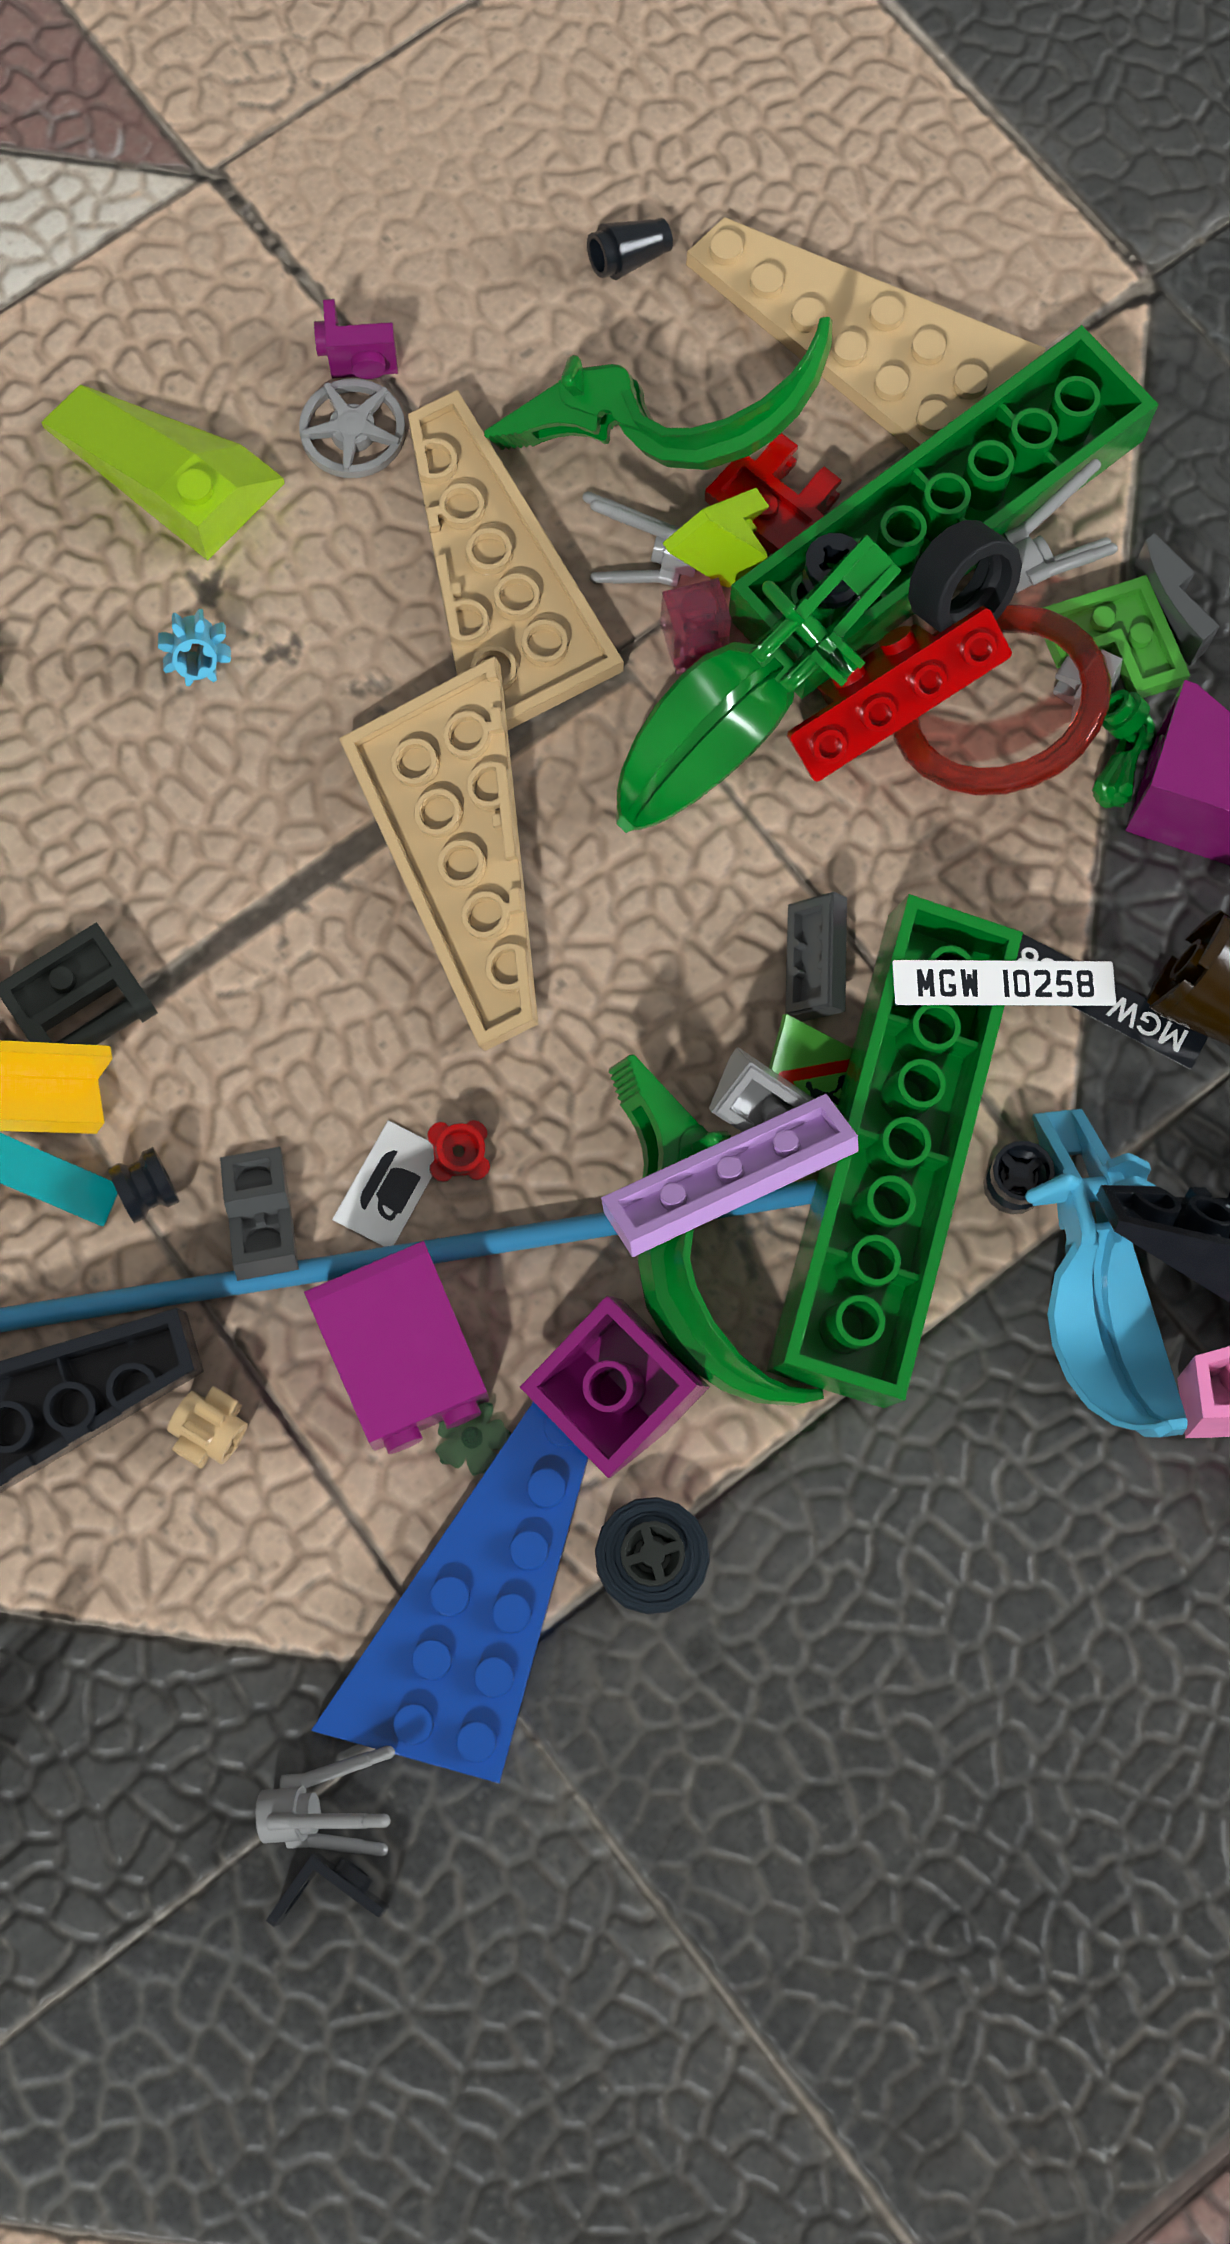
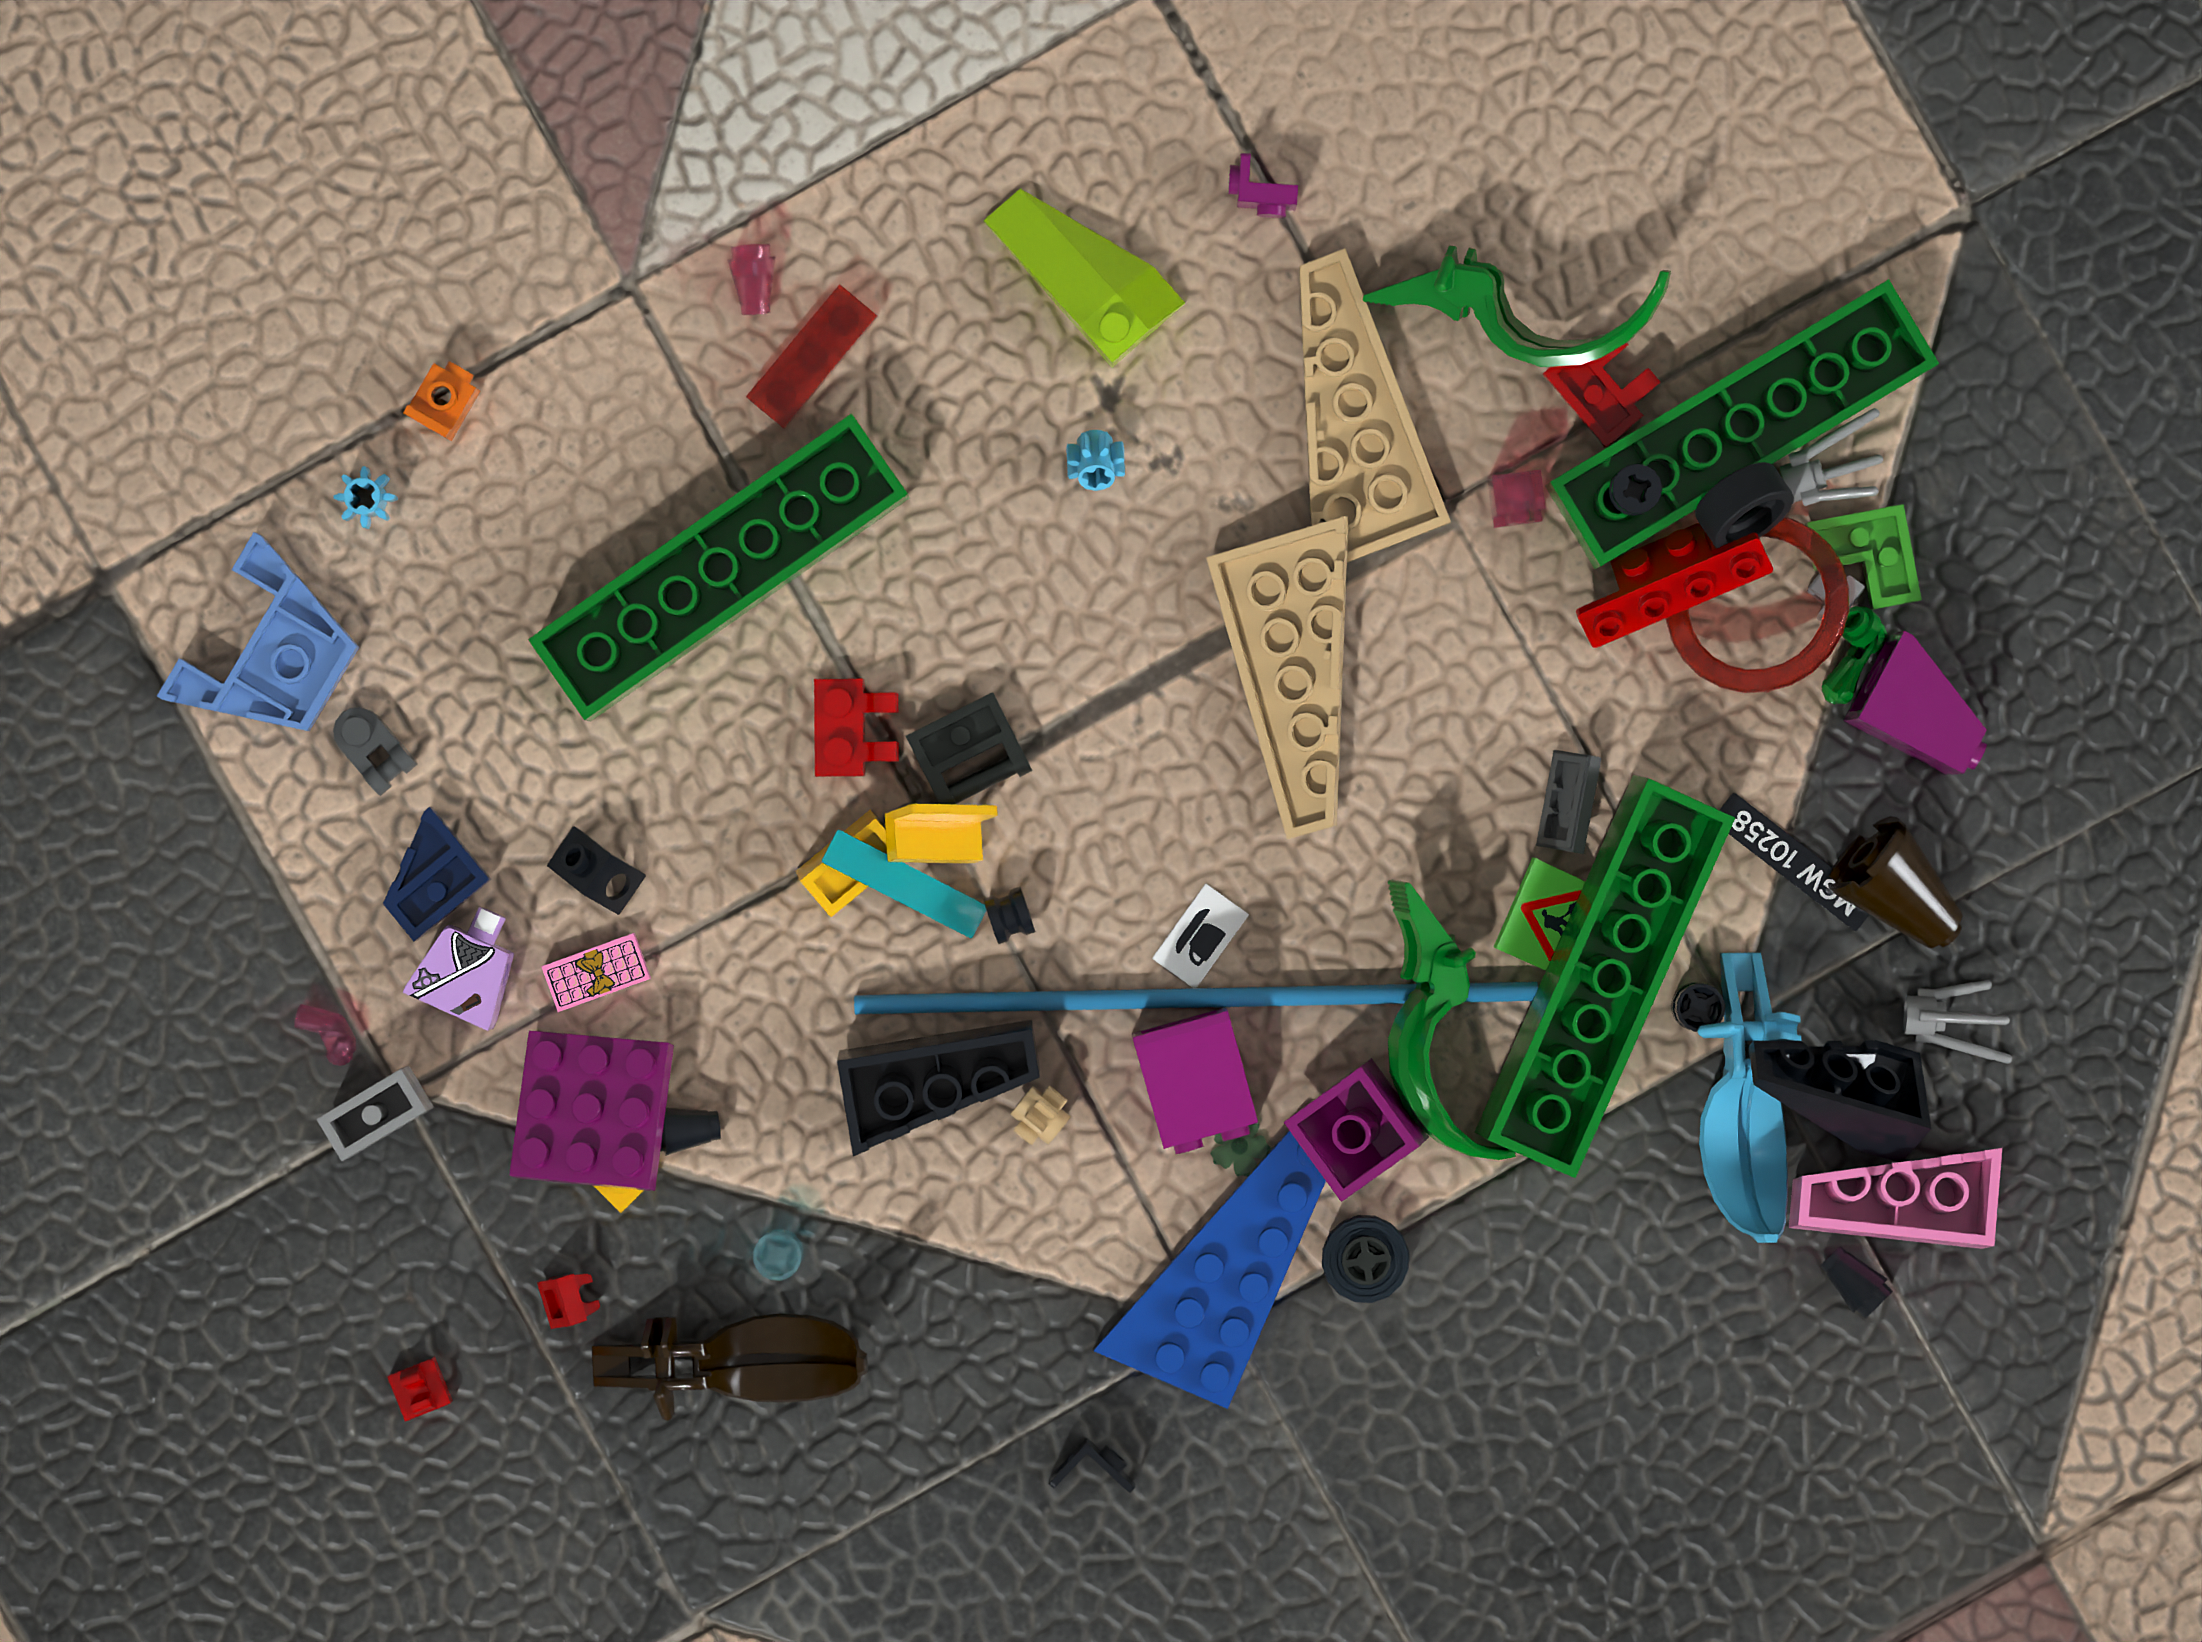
camera: 10 degrees right, 15 degrees up
(259, 1213) = (1096, 948): dark grey slope -> none
(296, 1816) = (1074, 1411): light grey plant -> none
(352, 427) = (1249, 261): light grey wheel -> none
(470, 1138) = (1267, 931): red plate -> none
(627, 245) = (1512, 122): black cone -> none
(670, 565) = (1509, 421): light grey plant -> none
(722, 538) = (1546, 433): lime slope -> none
(729, 1174) = (1469, 991): lavender plate -> none
(740, 695) = (1532, 576): green piece -> none
(753, 1093) = (1512, 935): light grey slope -> none
(890, 350) = (1724, 251): tan wing -> none
(1004, 983) = (1712, 858): white sticker -> none
(1169, 579) = (1919, 513): dark grey slope -> none

